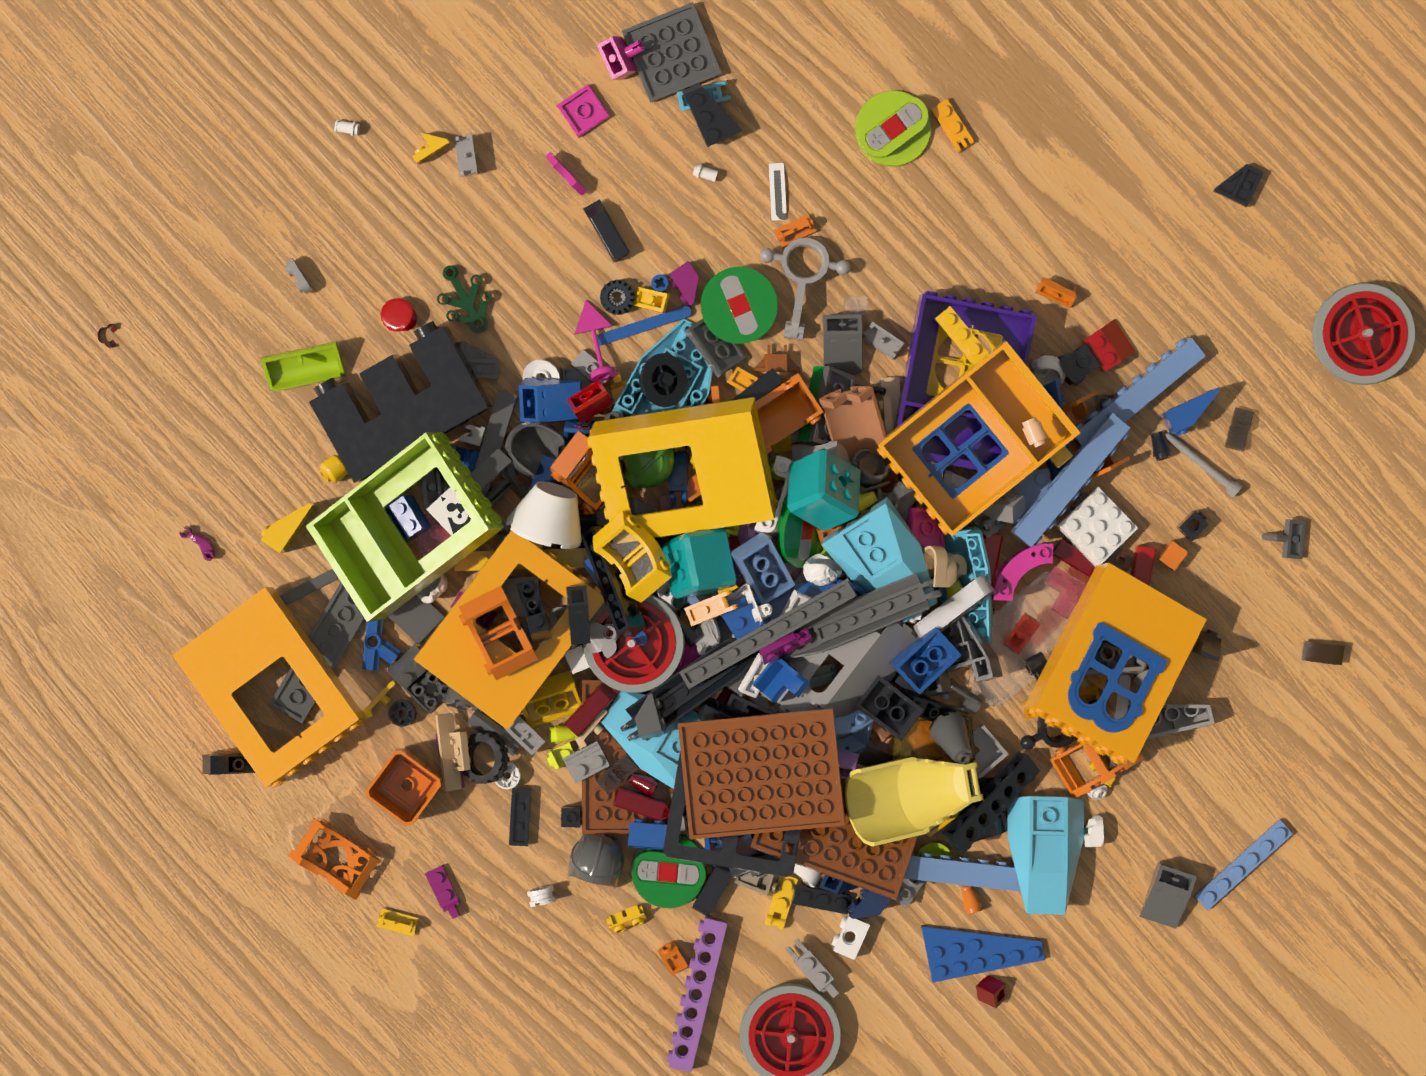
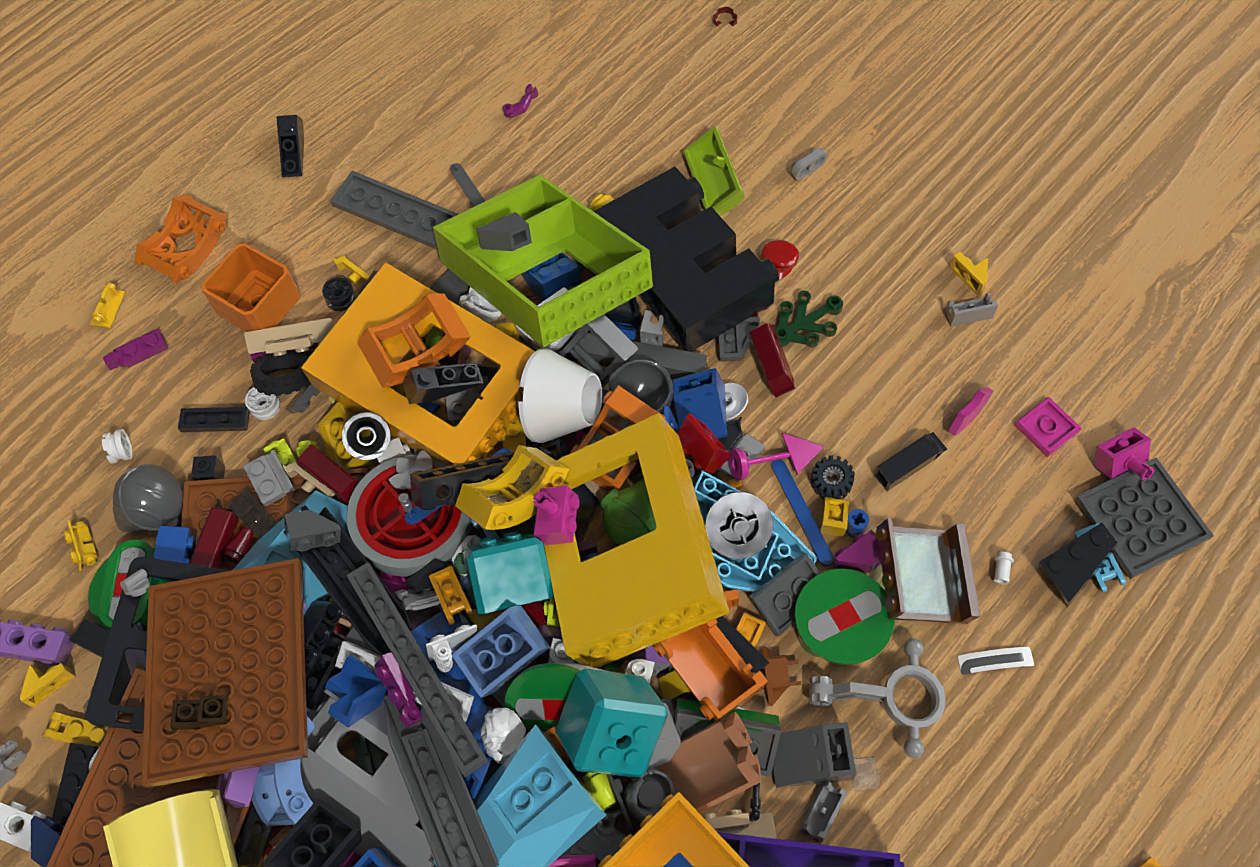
camera: 90 degrees right, 25 degrees down
(241, 649) = (406, 123): light orange panel -> none
(283, 531) = (531, 160): yellow slope -> none
(347, 127) = (977, 198): white pin -> none
(384, 649) = (408, 262): blue piece -> none
(394, 555) = (505, 234): none -> dark grey slope
(505, 333) = (772, 359): none -> dark red piece
(525, 736) = (306, 414): light grey hinge -> none
(569, 676) = (370, 446): none -> dark grey cone
(578, 614) = (441, 429): black slope -> none
(662, 521) = (556, 515): none -> dark pink brick
(672, 958) = (24, 600): orange bracket -> none
(689, 847) = (136, 583): none -> light grey plate
(707, 235) = (927, 574): none -> panel
(744, 936) = (39, 686): none -> yellow slope
(796, 229) = (955, 690): orange hinge -> none
(796, 787) = (199, 713): none -> dark brown slope
(893, 128) = (1112, 808): lime piece -> none

